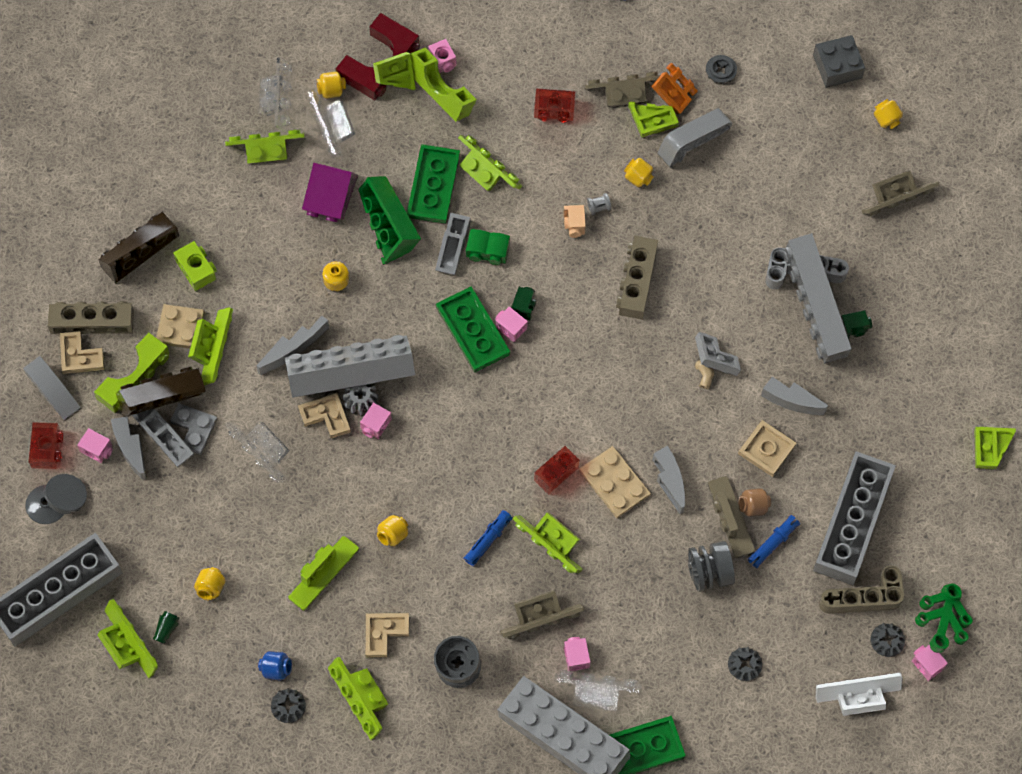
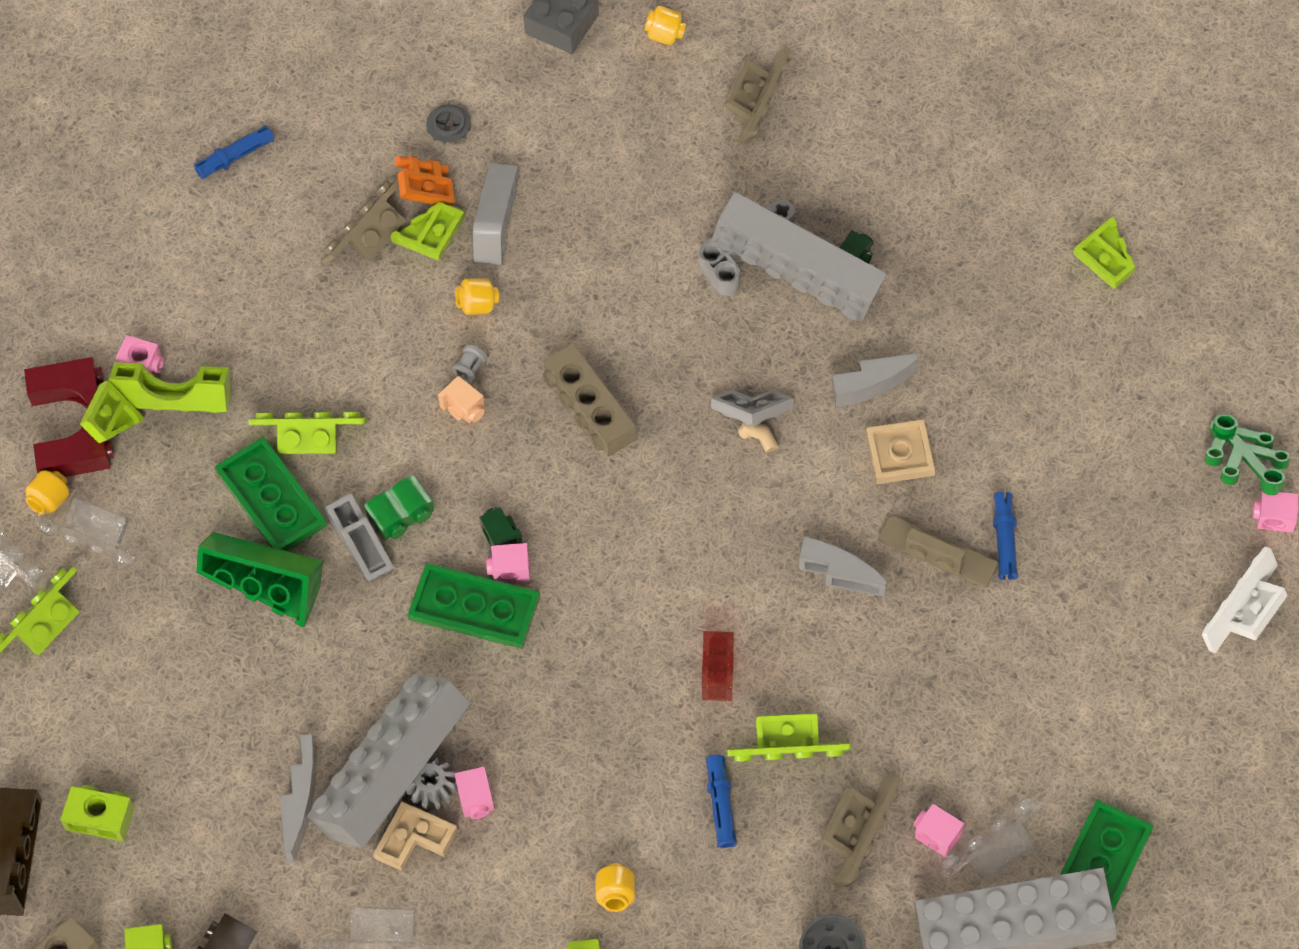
camera: 40 degrees left, 5 degrees down
(178, 325) = (148, 892): tan plate -> none
(209, 344) = (204, 877): lime bracket -> none
(328, 192) = (167, 603): magenta slope -> none
(335, 276) = (268, 683): yellow head -> none
(563, 99) = (320, 291): clear red brick -> none
(614, 482) = (786, 625): tan plate -> none
(706, 567) = (977, 613): dark grey wheel -> none
(745, 673) = (1099, 690): dark grey gear -> none
(754, 502) = (946, 515): medium nougat head -> none
(854, 518) = (1059, 440): light grey brick -> none
(860, 595) = (1145, 508): dark tan beam -> none
(882, 647) = (1219, 539): dark grey gear -> none

